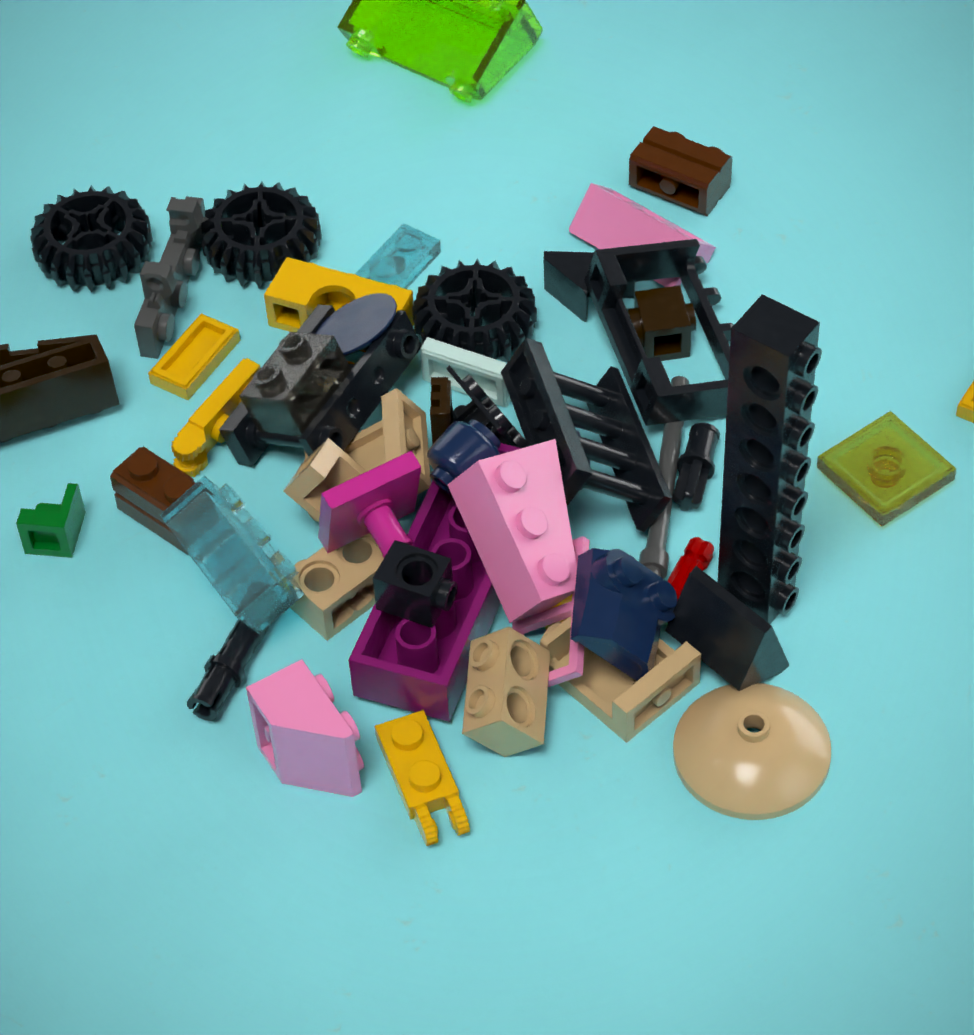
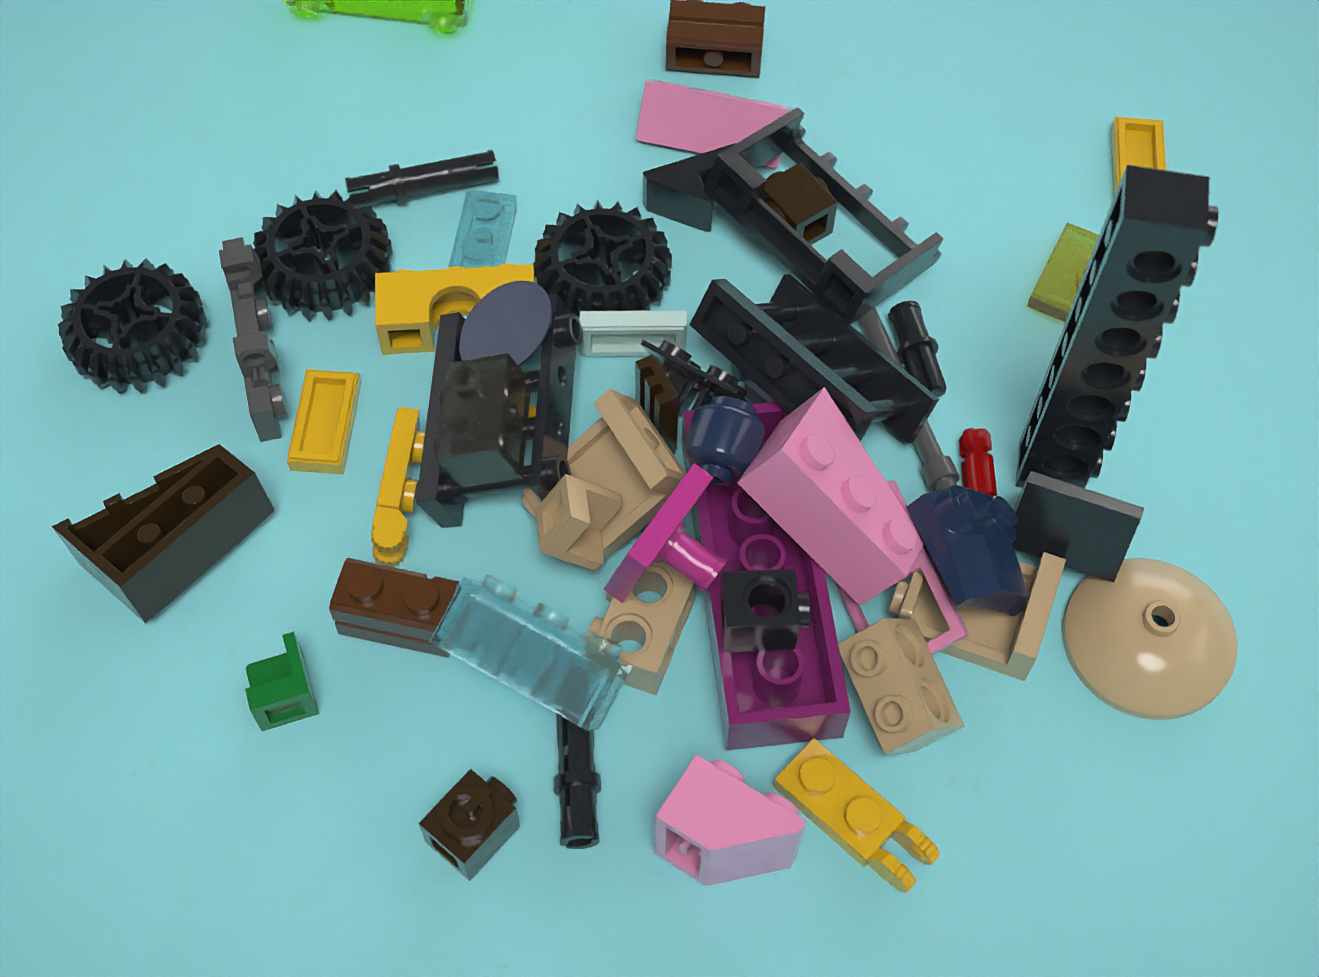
camera: 30 degrees left, 10 degrees up
(129, 661) = (471, 822): none -> dark brown brick
(373, 204) = (423, 178): none -> black pin

